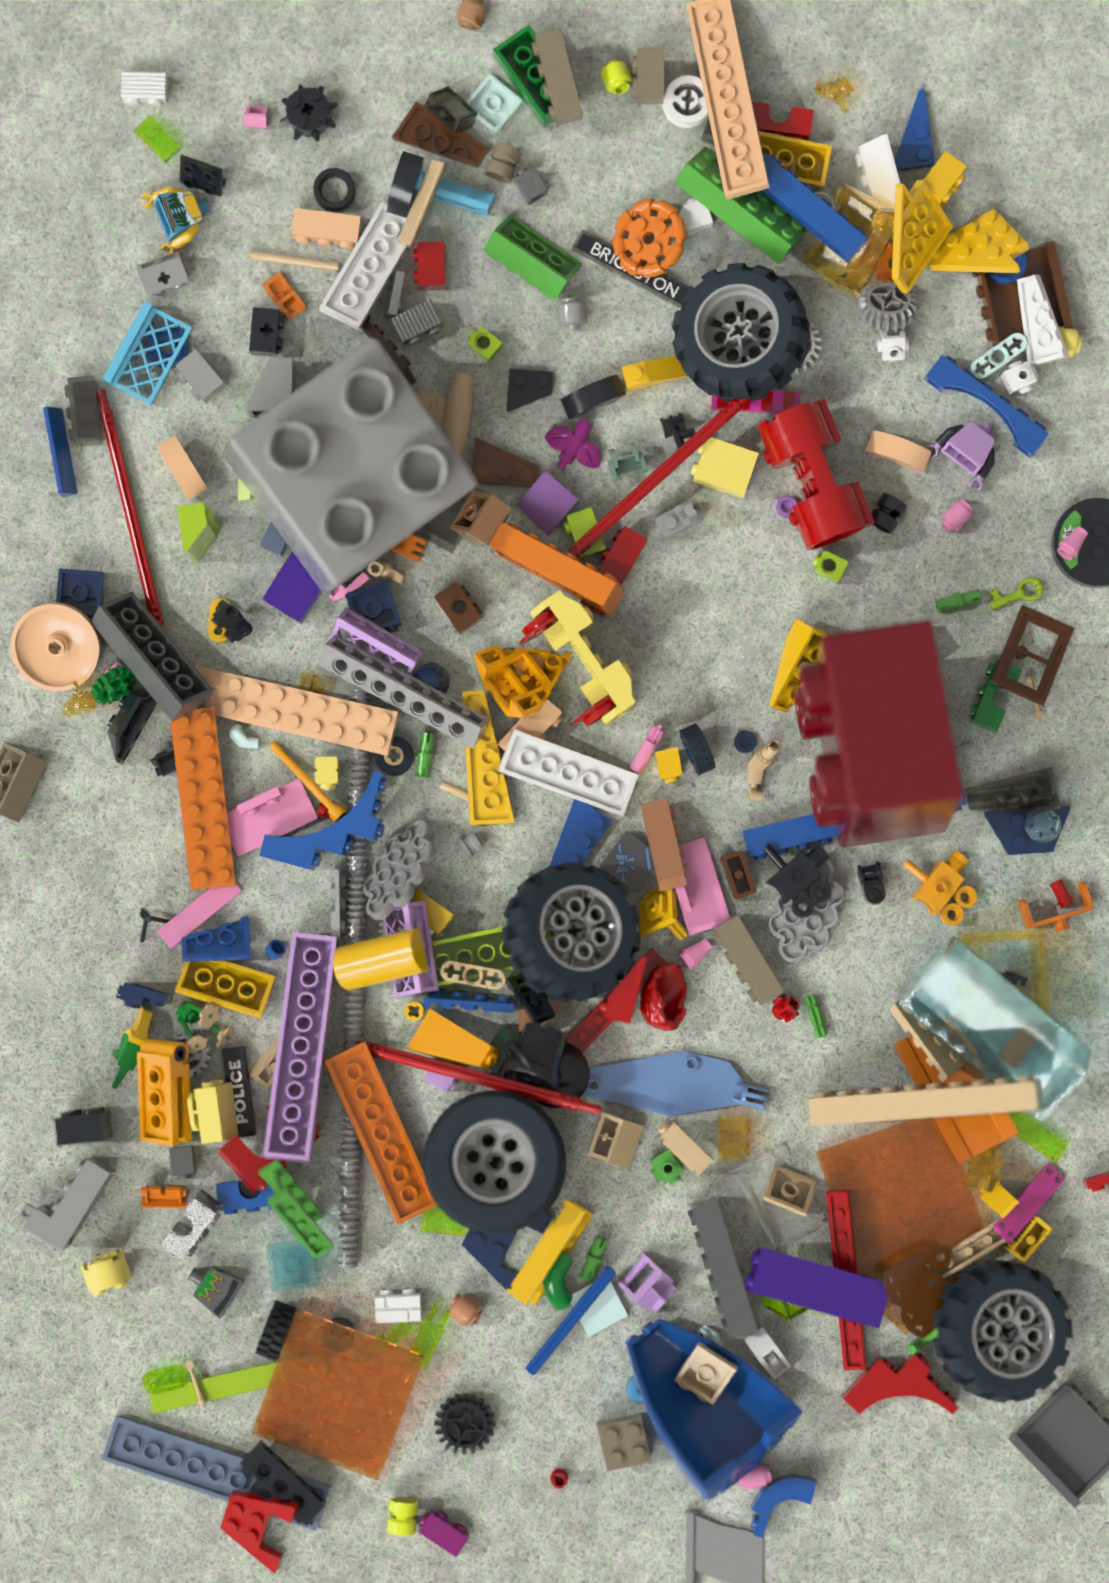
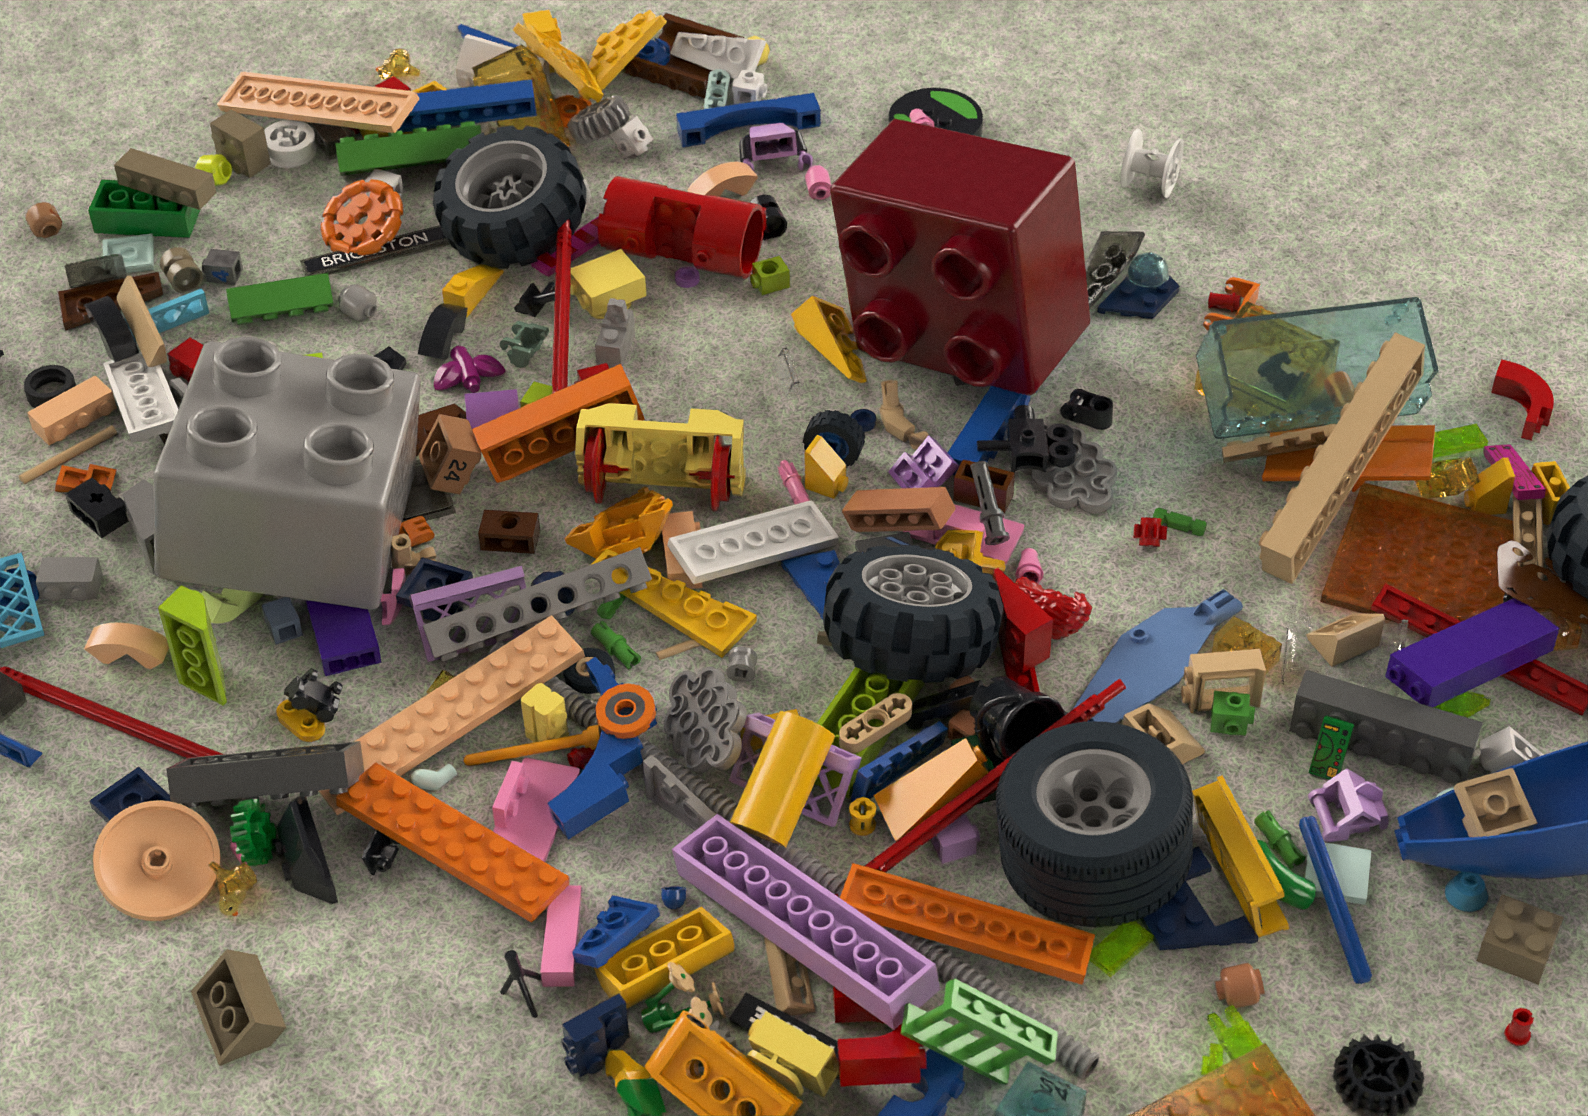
camera: 50 degrees left, 40 degrees down
(342, 825) = (621, 697): none -> orange tile
(398, 1307) = (1181, 1047): white brick -> none
(682, 1246) = (1331, 748): none -> green tile
(709, 904) = (991, 515): none -> dark grey pin
(724, 823) = (925, 468): none -> medium lavender slope
(748, 960) = (1074, 528): dark tan brick -> none
(942, 884) = (1141, 368): light orange piece -> none

